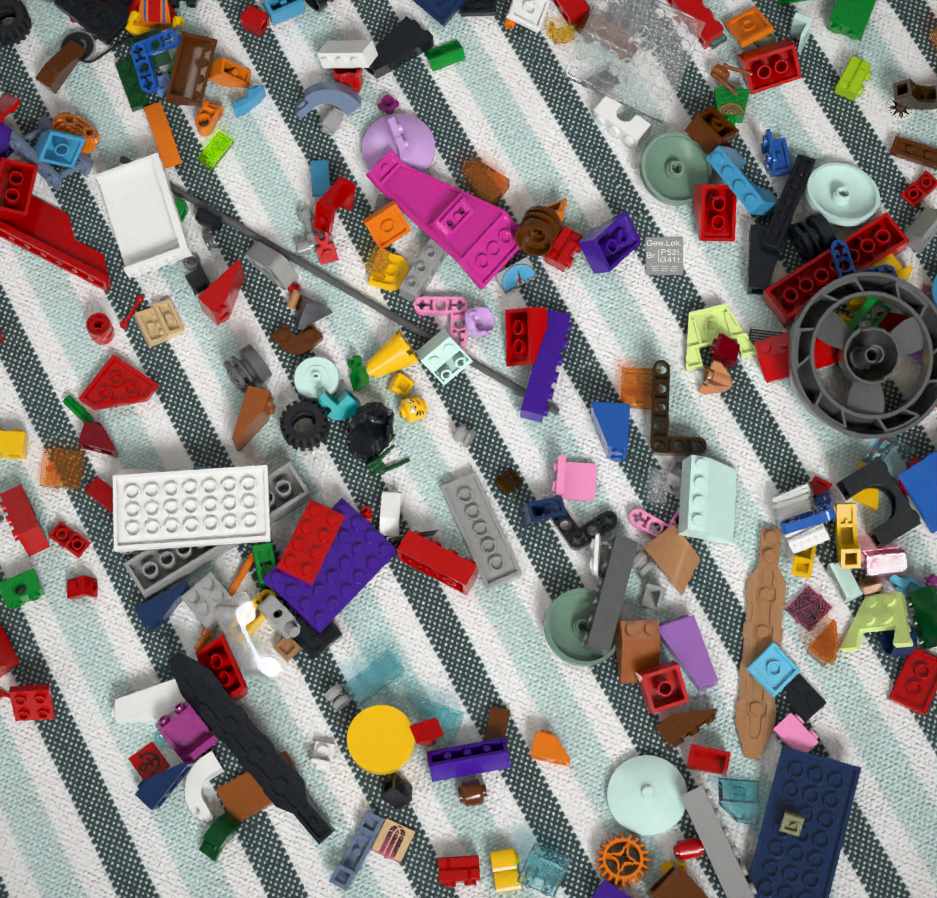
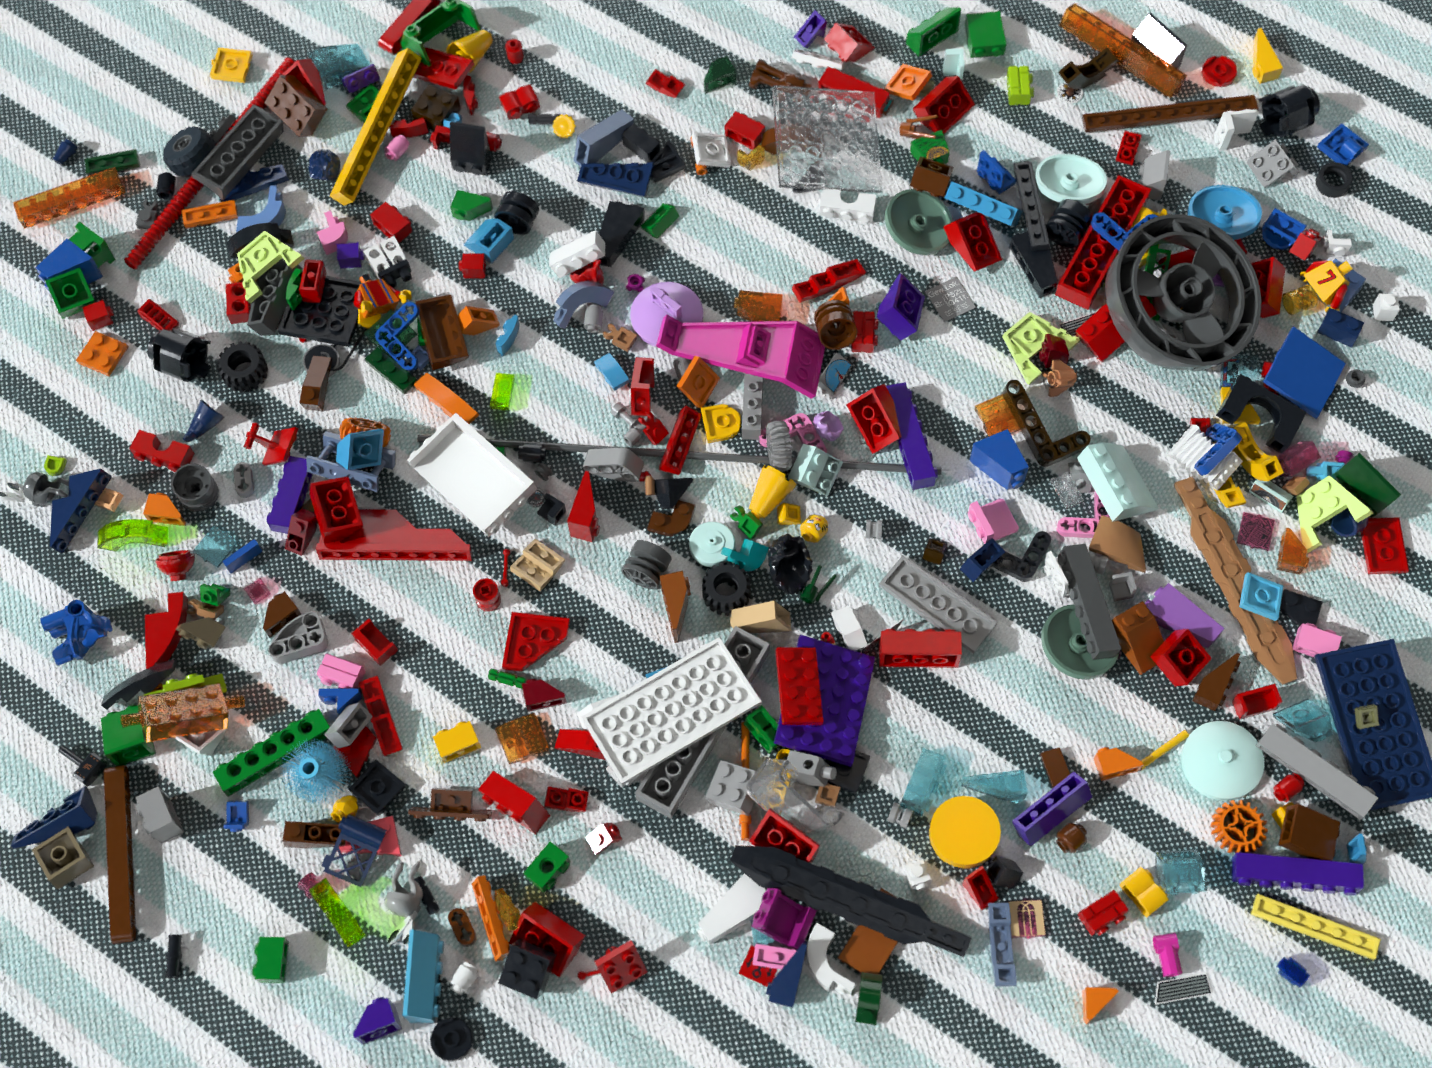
camera: 30 degrees left, 5 degrees down
(159, 609) = (687, 821): dark blue slope -> none
(160, 757) = (771, 955): none -> bright pink plate
(209, 115) = (479, 364): orange piece -> none
(319, 466) = (762, 618): none -> tan slope
(342, 272) = (680, 441): none -> red slope
(346, 151) = (623, 338): none -> medium nougat plate
(368, 794) = (980, 888): none -> red slope
(378, 263) = (710, 418): clear yellow brick -> none
(420, 319) = (779, 445): none -> light grey gear
(426, 732) = (1004, 801): red slope -> none
(562, 185) = (828, 281): none -> red slope
(600, 759) = (1164, 748): none -> yellow bar

